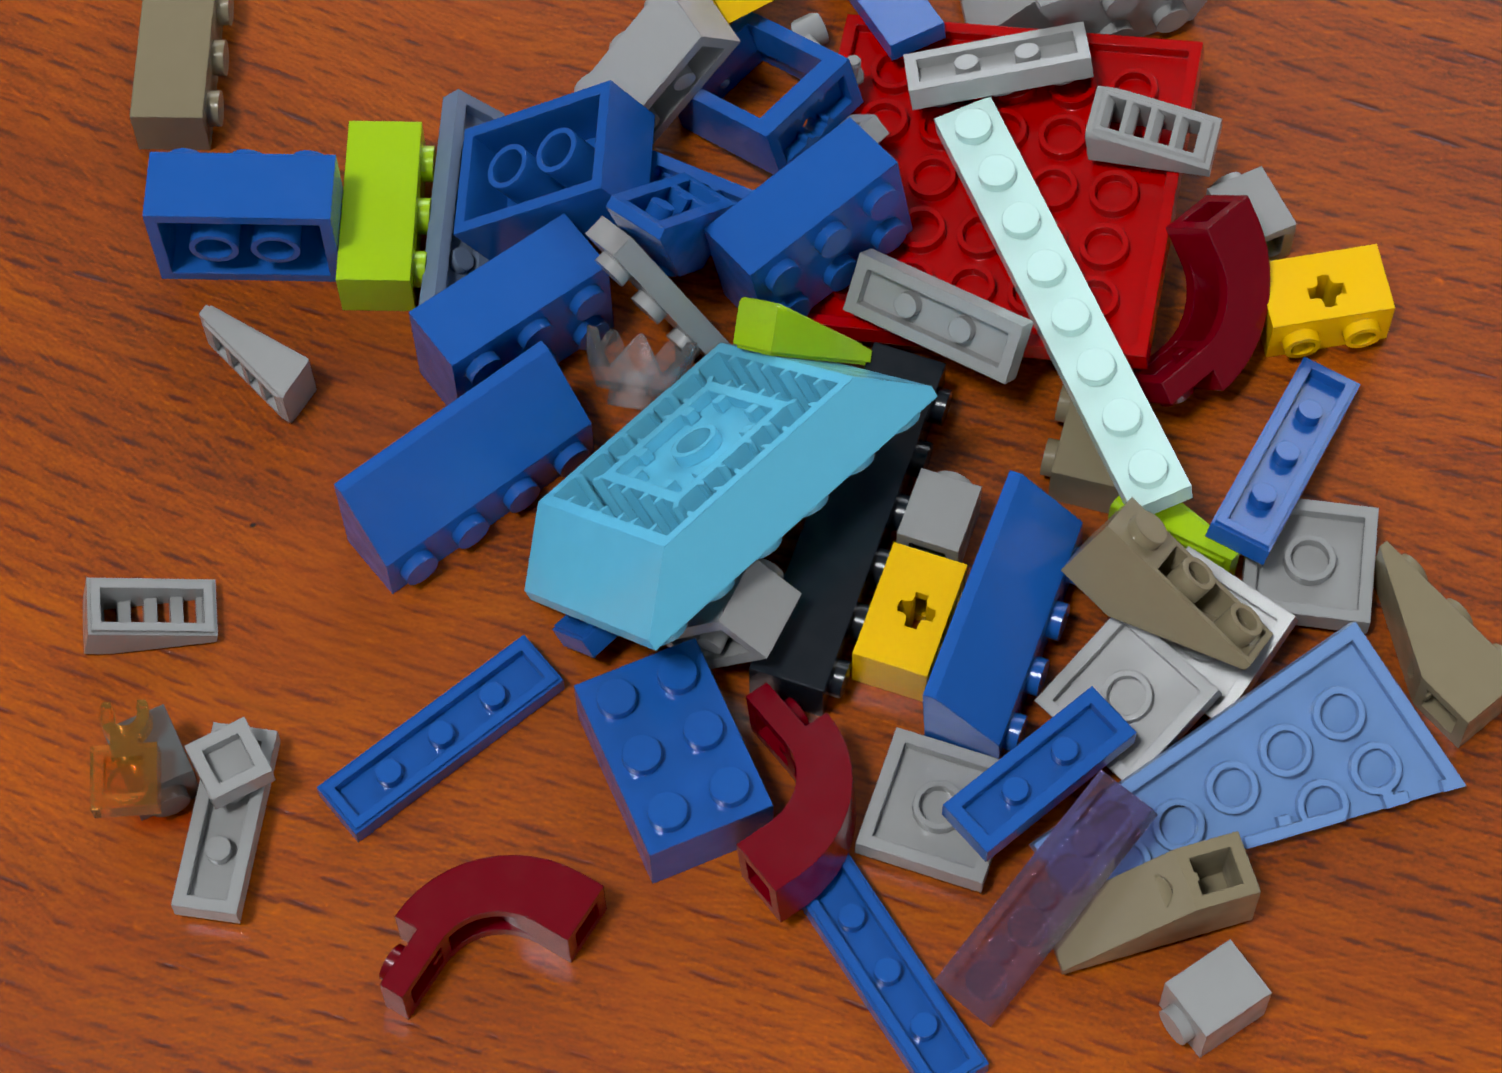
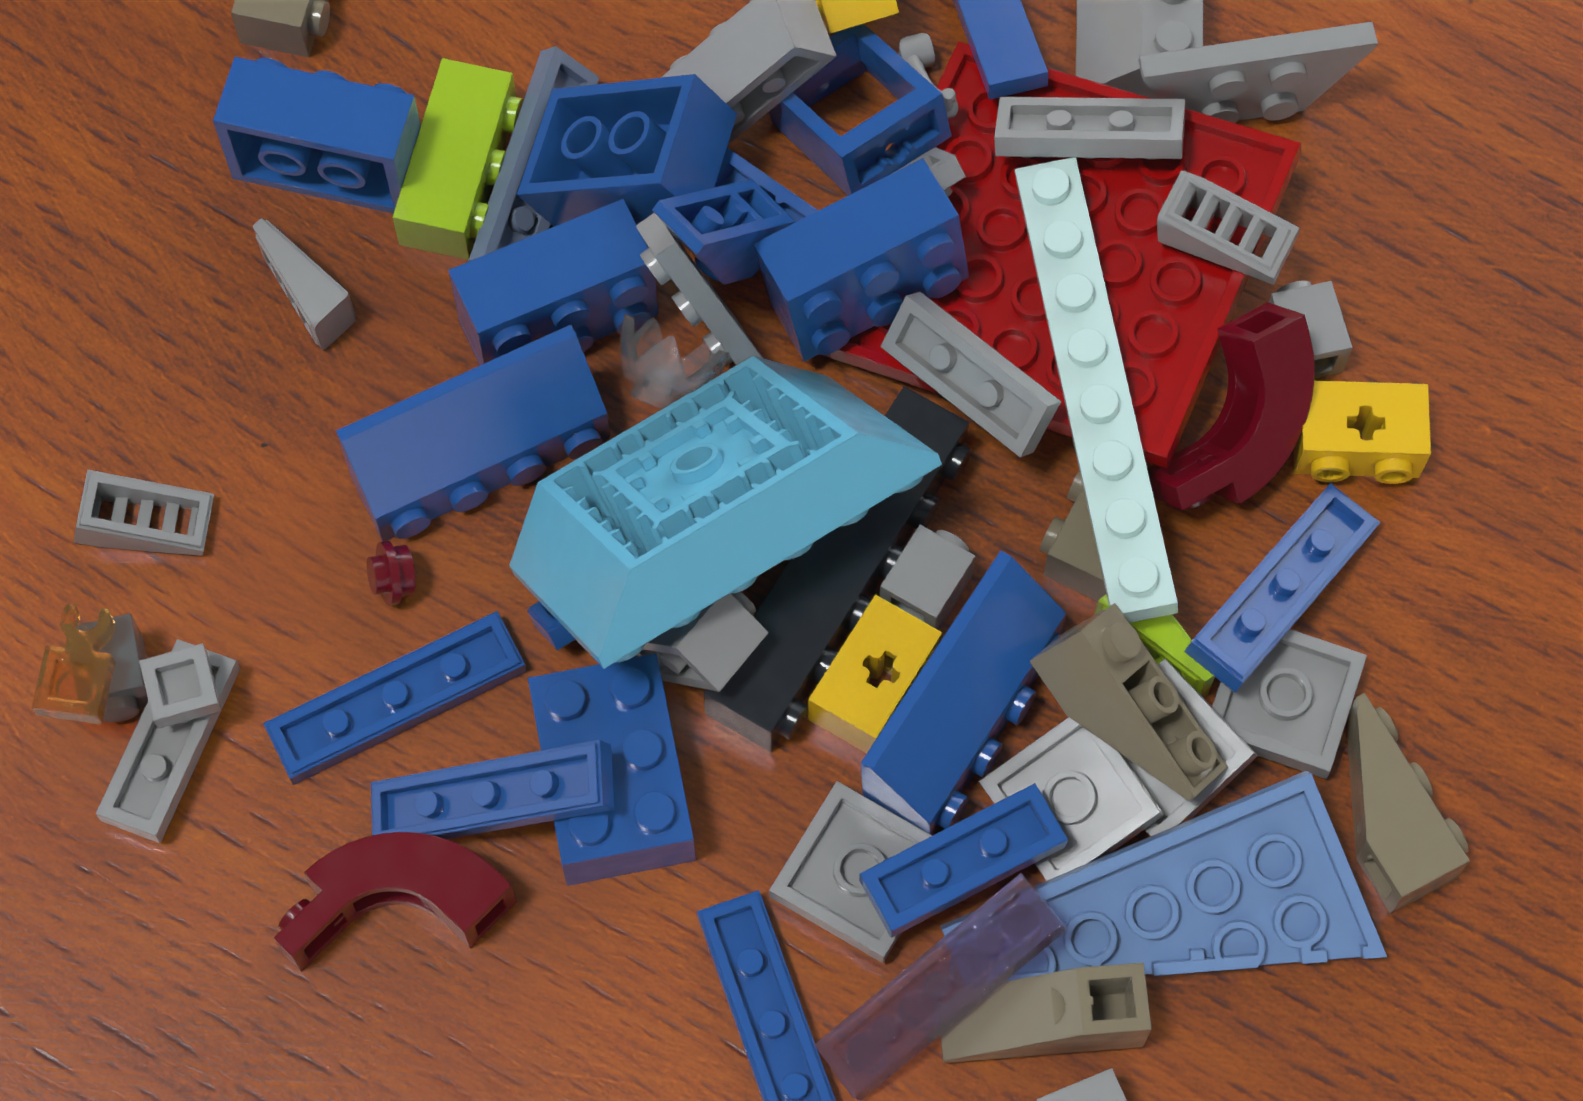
camera: 10 degrees right, 5 degrees up
(411, 618) = (391, 572): none -> dark red plate
(570, 800) = (497, 793): none -> blue tile
(786, 333) = (815, 367): lime slope -> none
(811, 837) = (731, 871): dark red arch -> none

